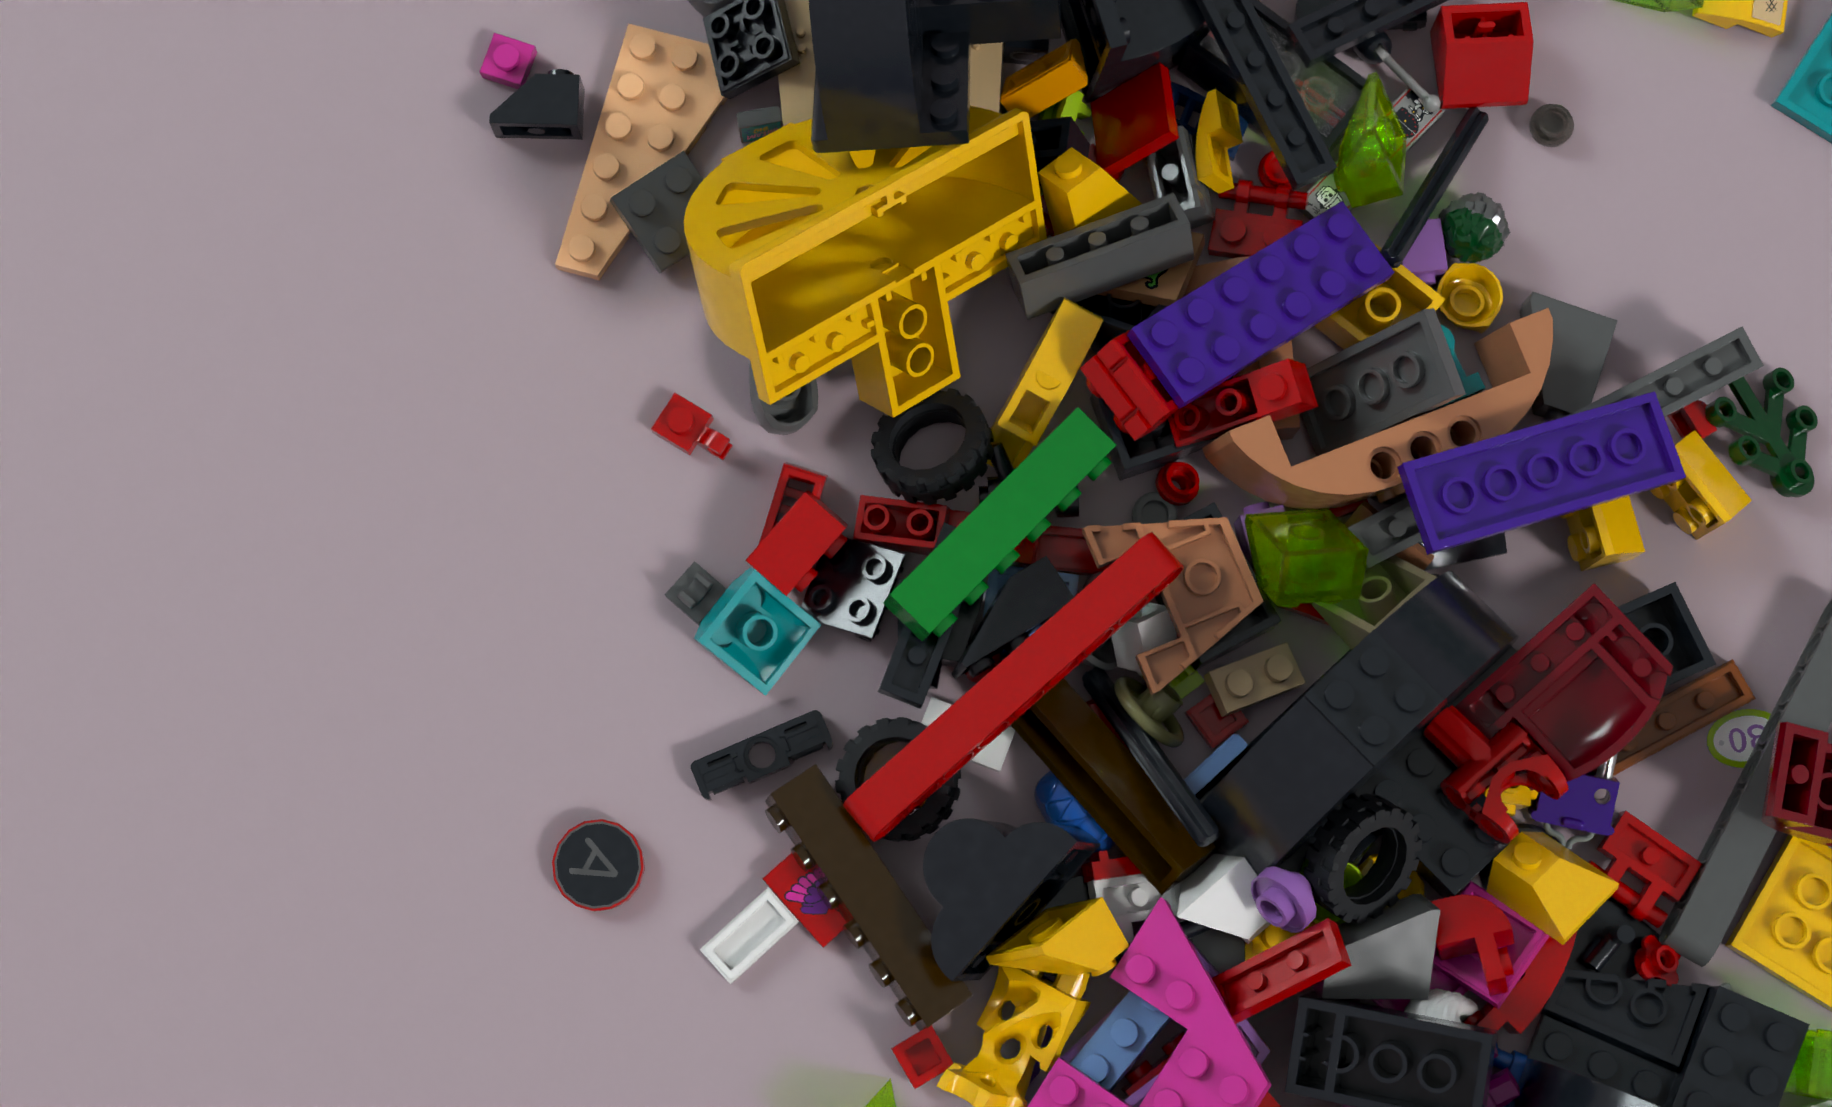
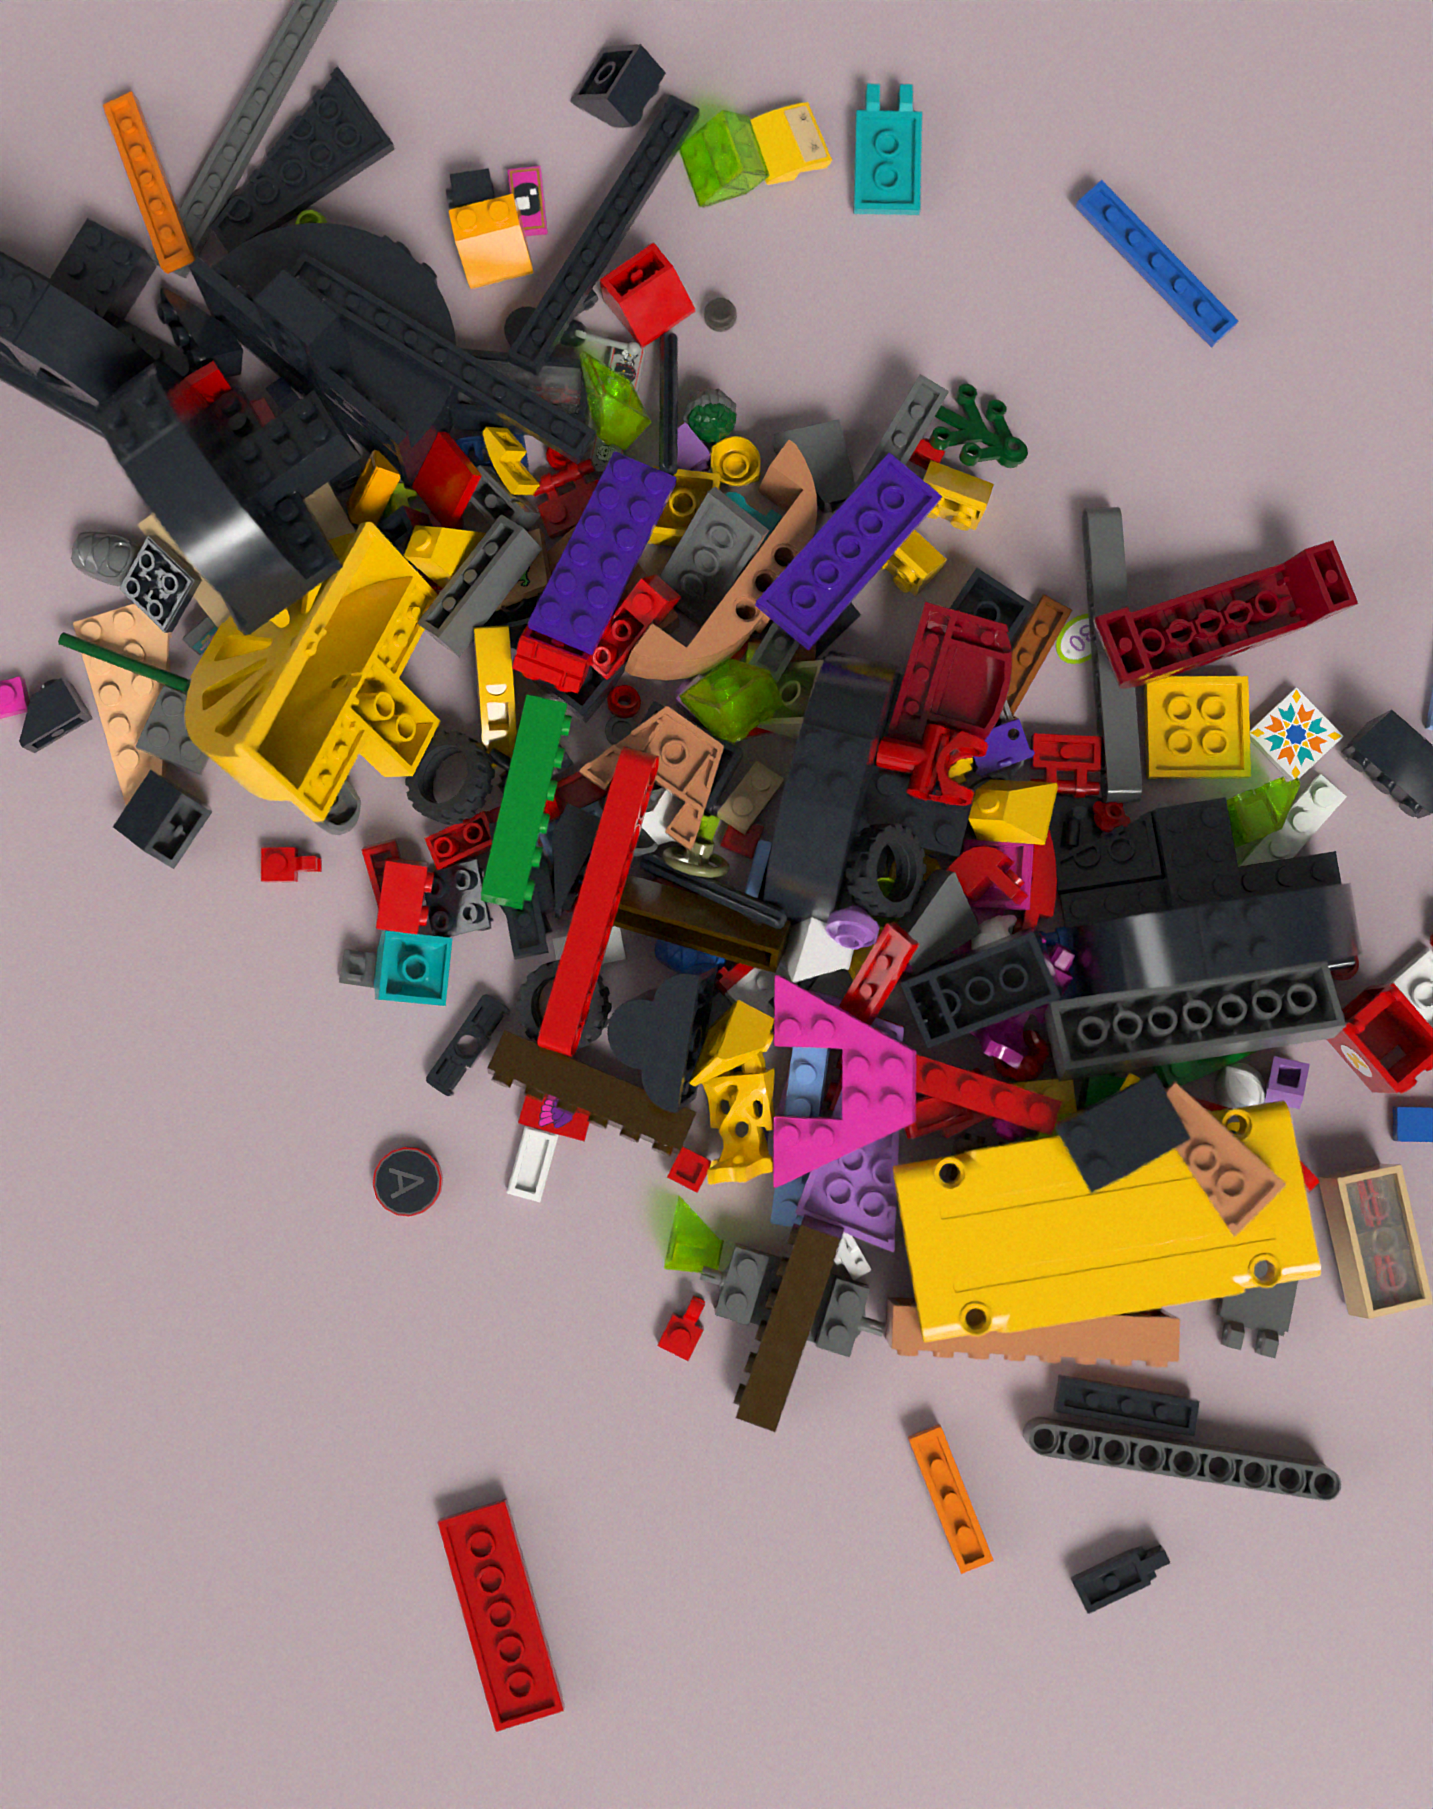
camera: 30 degrees left, 5 degrees up
(589, 294) = (162, 819): none -> black slope
(657, 100) = (124, 662): none -> dark green bar

